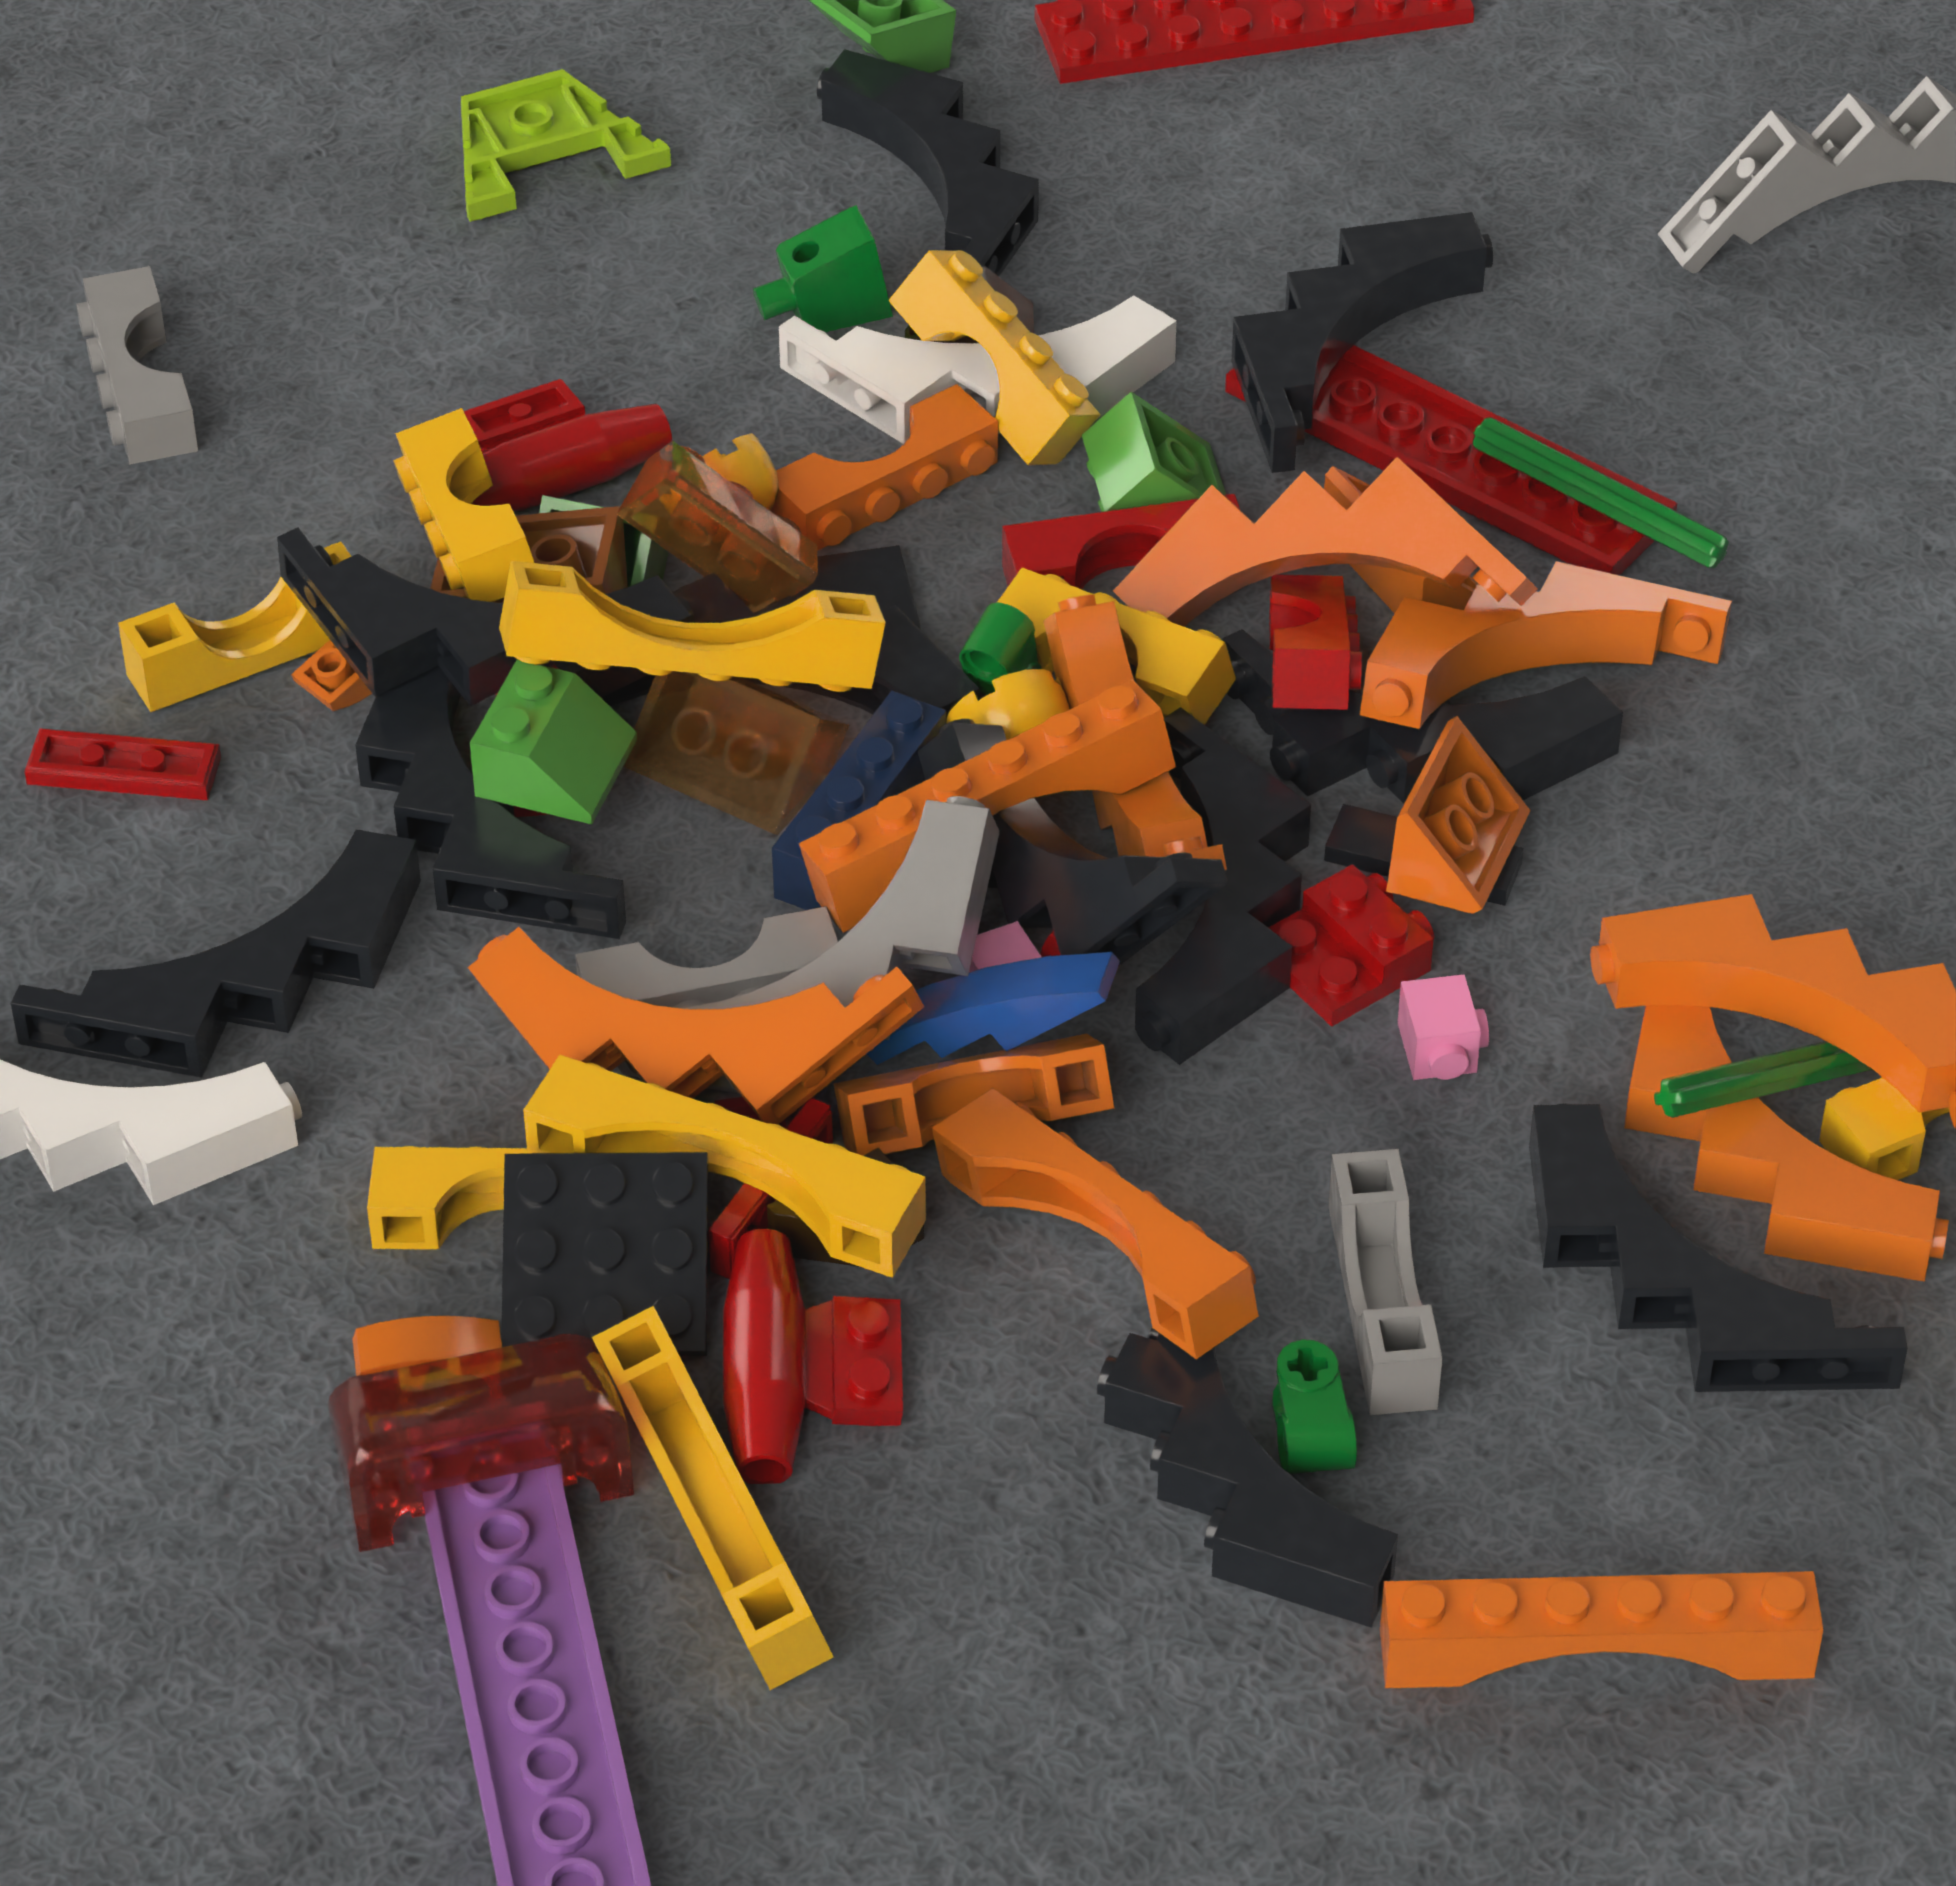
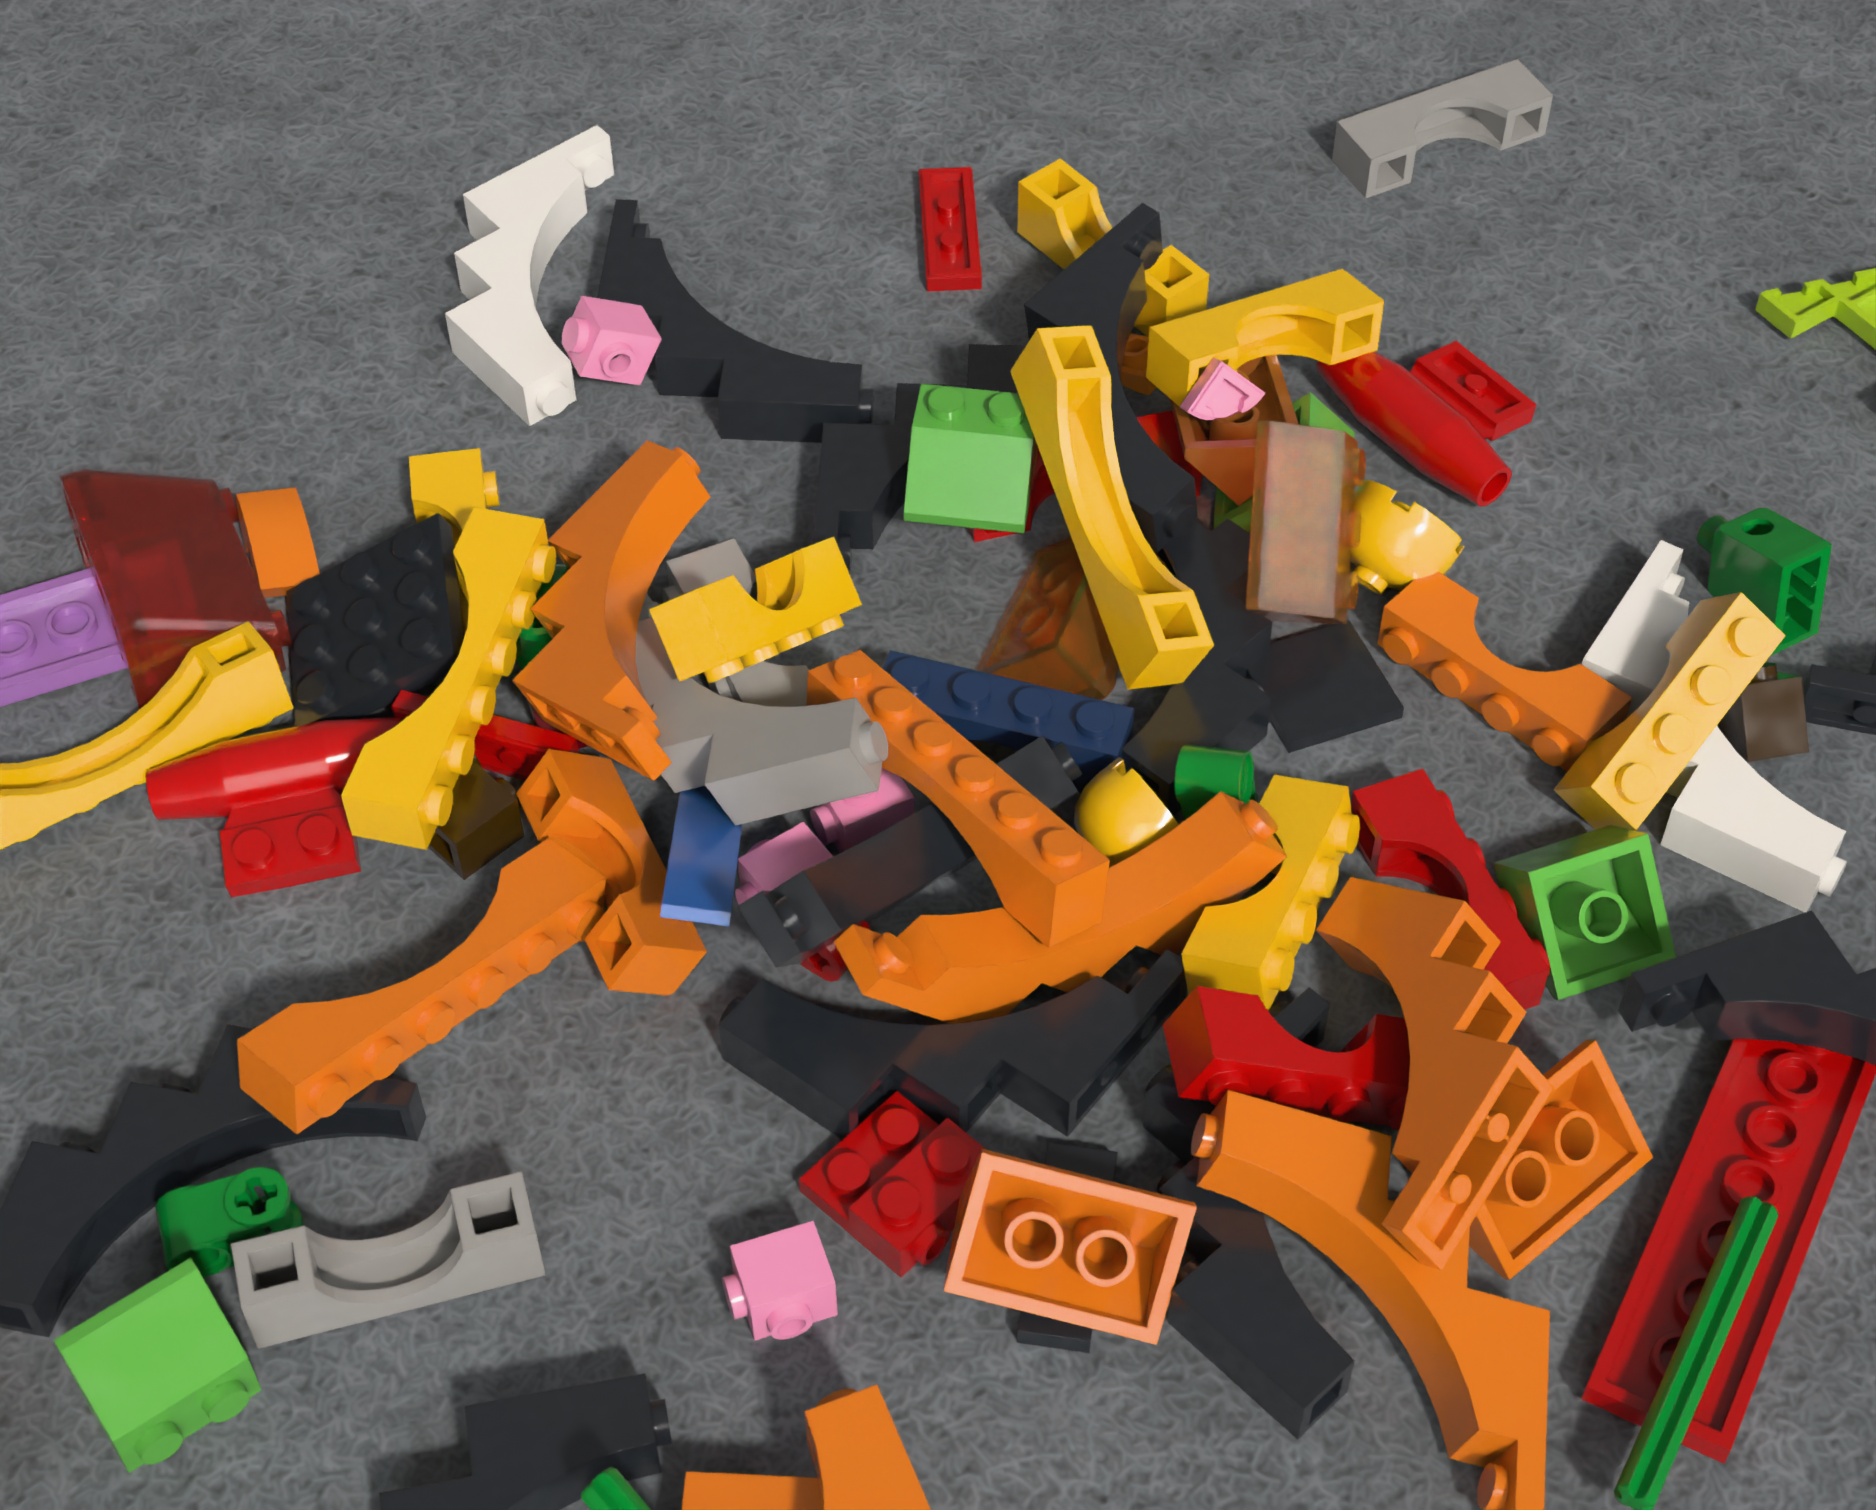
camera: 80 degrees right, 5 degrees up
(252, 1021) = (610, 340): none -> bright pink brick
(545, 535) = (1221, 393): none -> bright pink tile
(715, 917) = (726, 630): none -> yellow arch
(1472, 1450) = (159, 1366): none -> bright green slope

